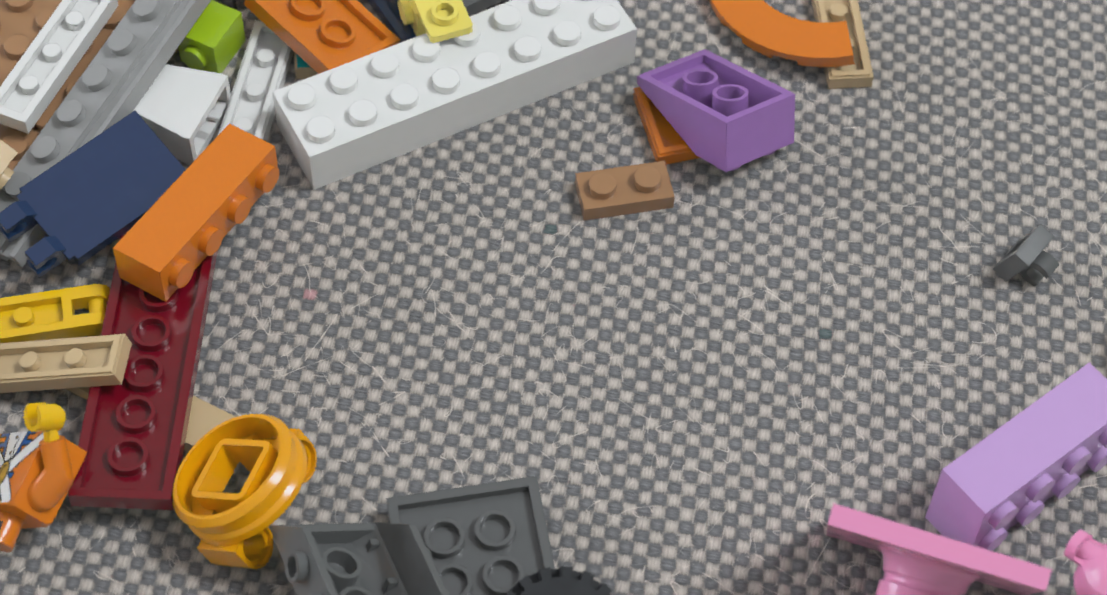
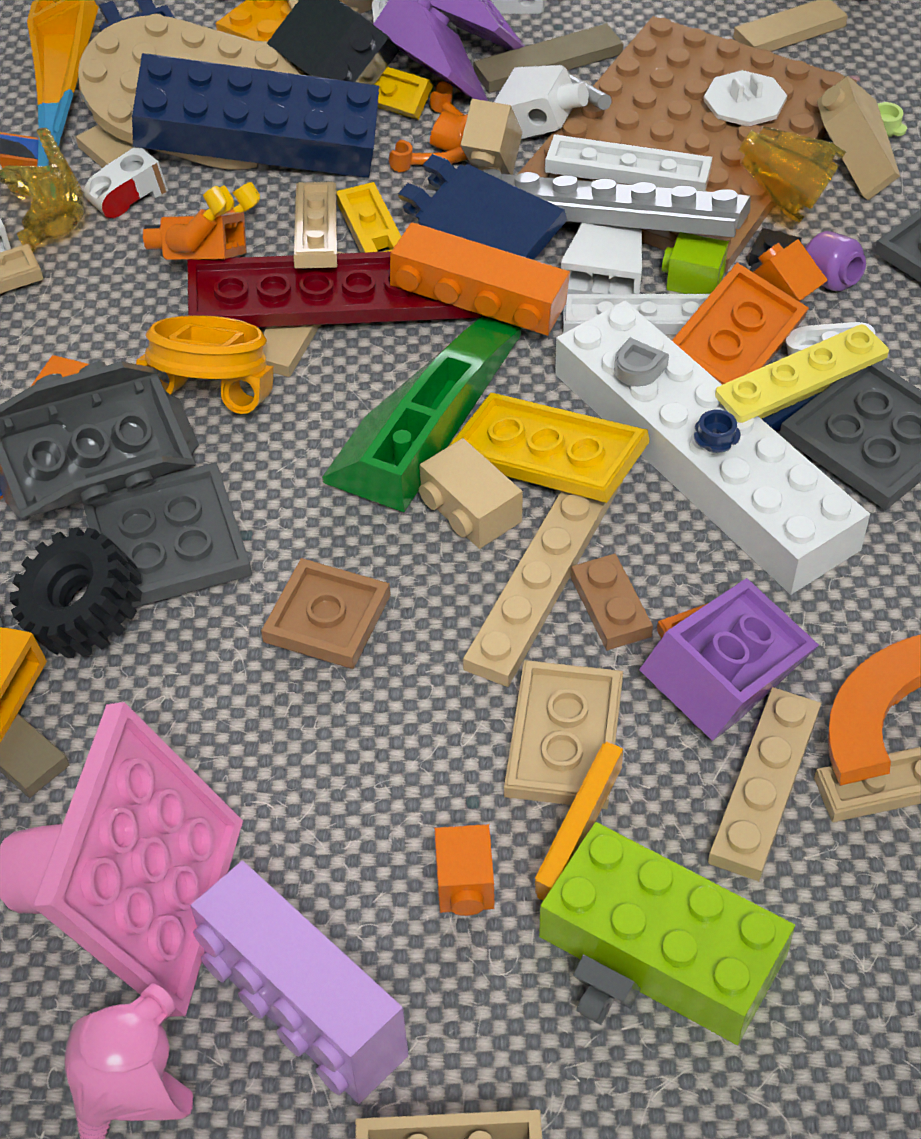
camera: 85 degrees right, 5 degrees down
(362, 302) = (420, 417): none -> green wedge
(379, 90) = (639, 363): none -> light grey tile
(432, 202) = (554, 446): none -> yellow tile
(479, 275) = (470, 493): none -> tan brick
(492, 44) = (717, 431): none -> dark blue plate
(576, 234) = (534, 588): none -> tan plate
(604, 418) = (326, 613): none -> medium nougat plate
(765, 250) = (559, 729): none -> tan tile
(847, 122) = (764, 784): none -> tan plate
(880, 241) = (580, 816): none -> light orange tile
(917, 333) = (464, 869): none -> orange brick
(980, 205) = (666, 931): none -> lime brick

